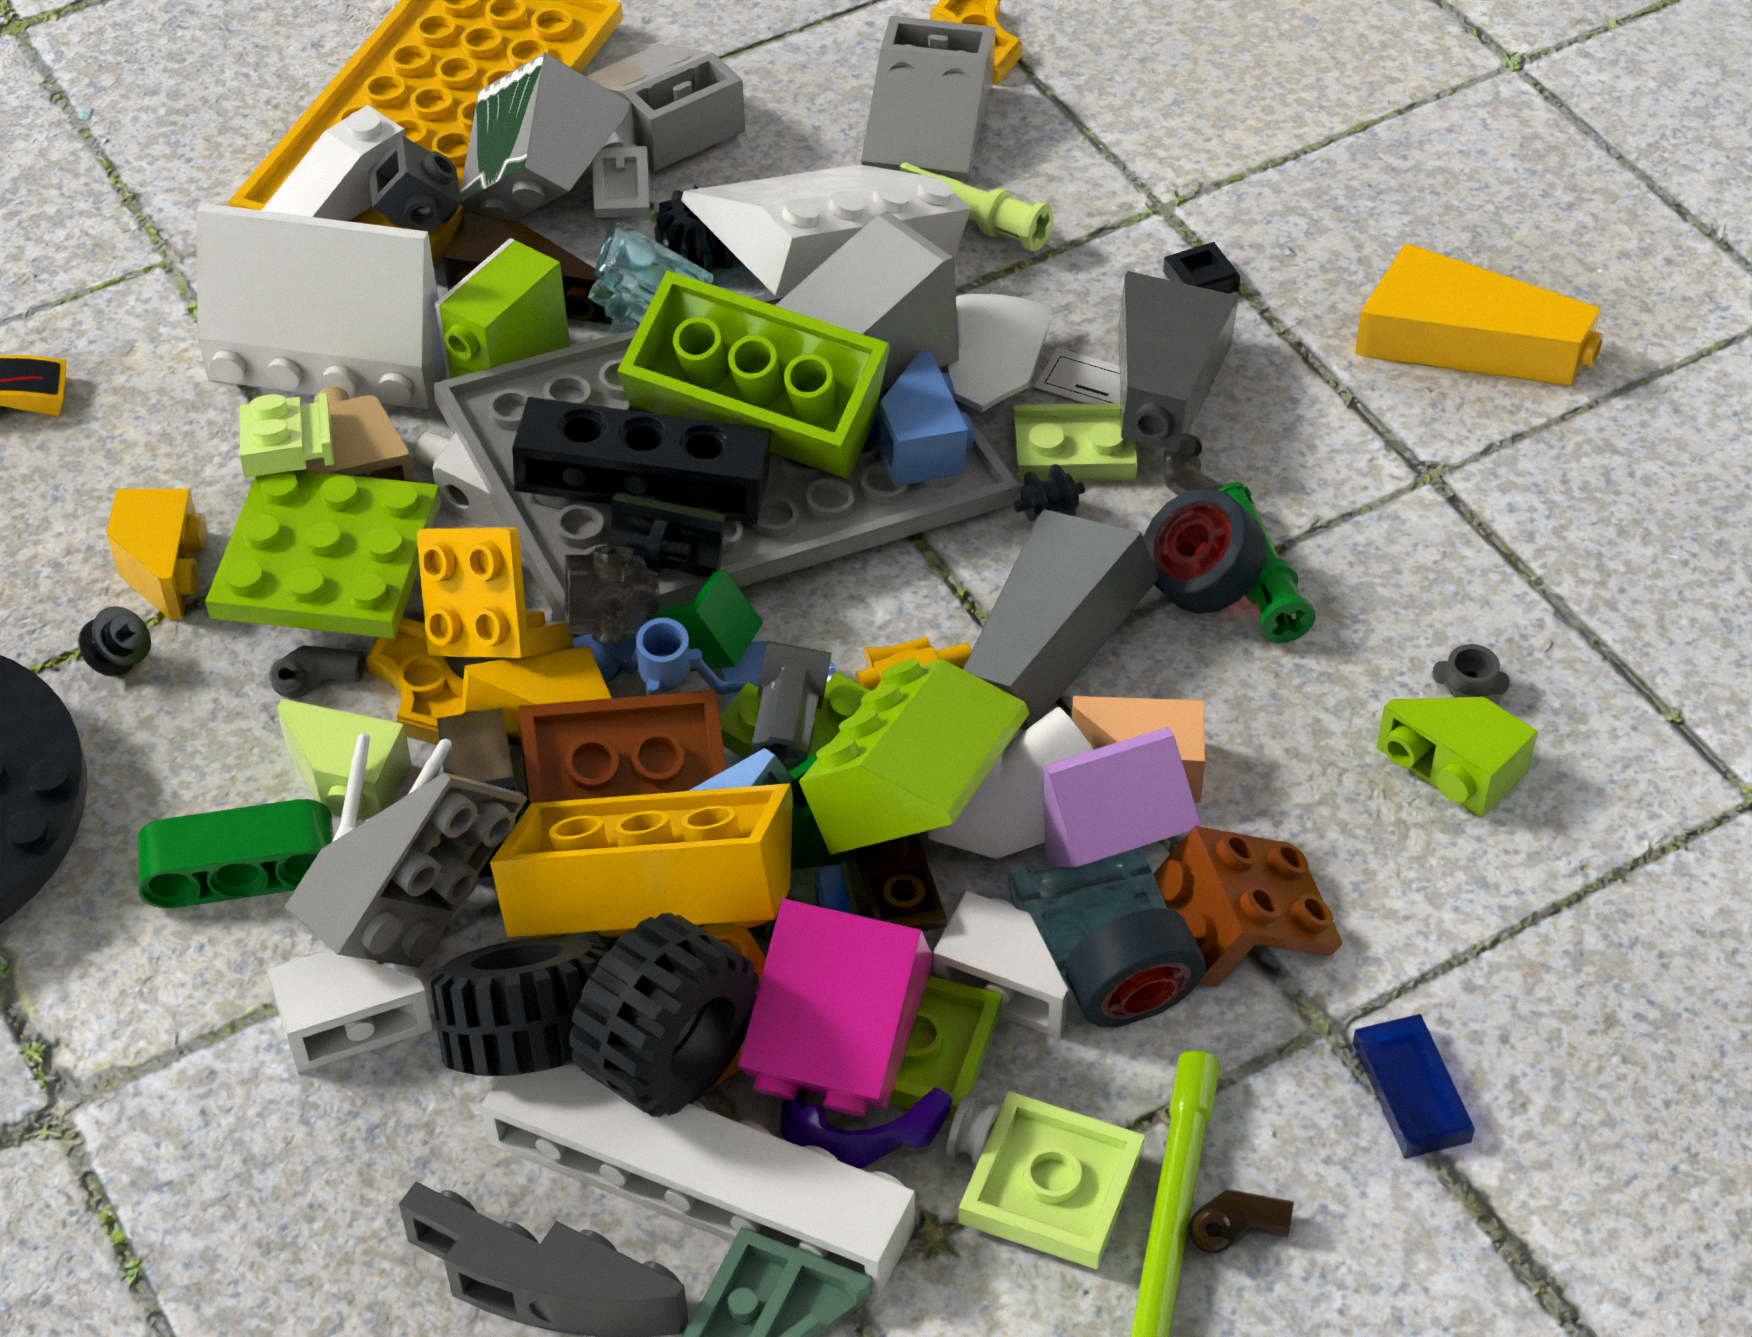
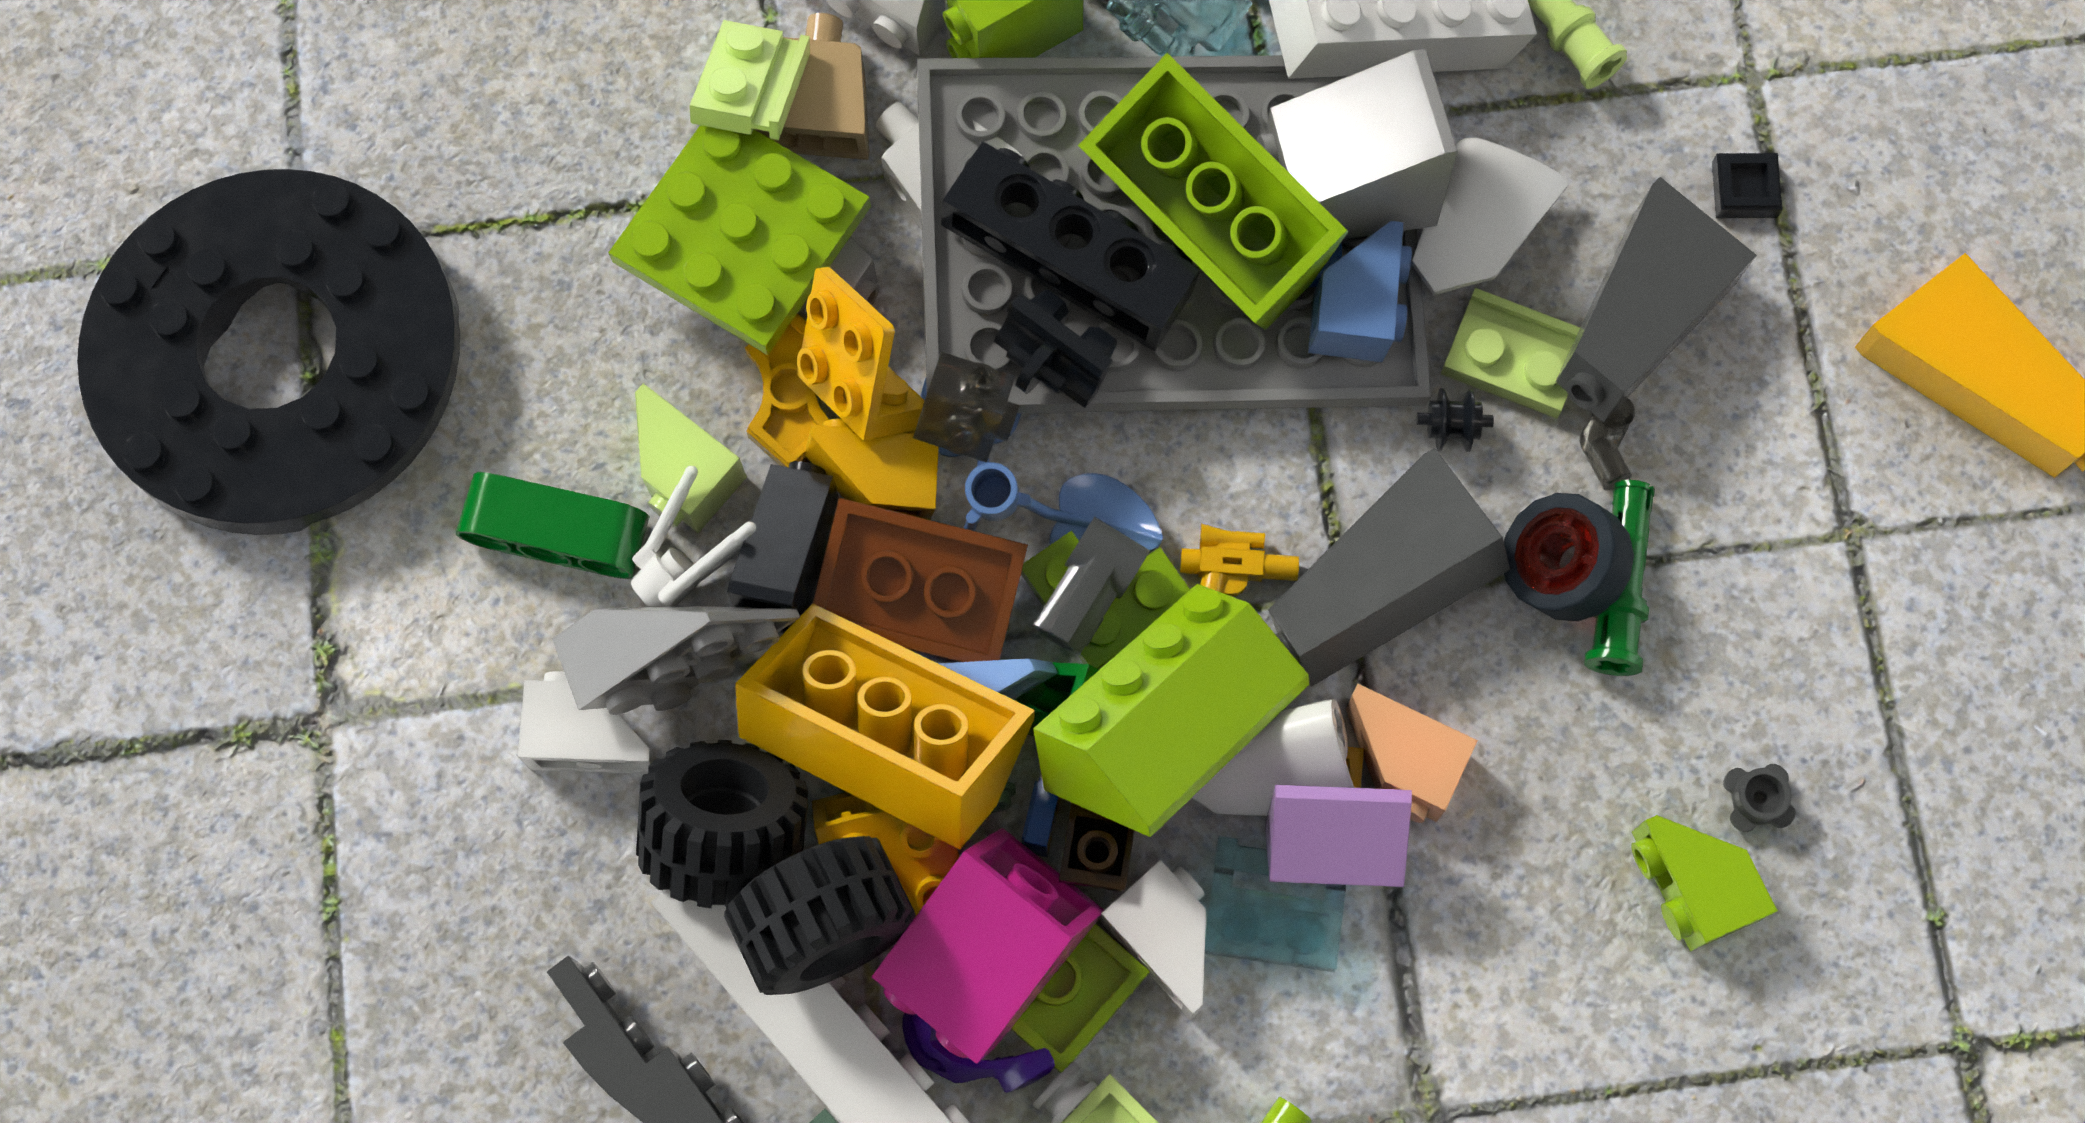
camera: 25 degrees right, 25 degrees up
(114, 641) = (529, 239): black wheel -> none
(156, 545) = (605, 135): yellow slope -> none
(313, 665) = (693, 335): dark grey arm -> none
(717, 621) = (1068, 457): green panel -> none
(1080, 378) = (1562, 271): white sticker -> none
(1134, 967) = (1274, 1004): black wheel -> none
(1244, 894) = (1416, 963): dark orange bracket -> none

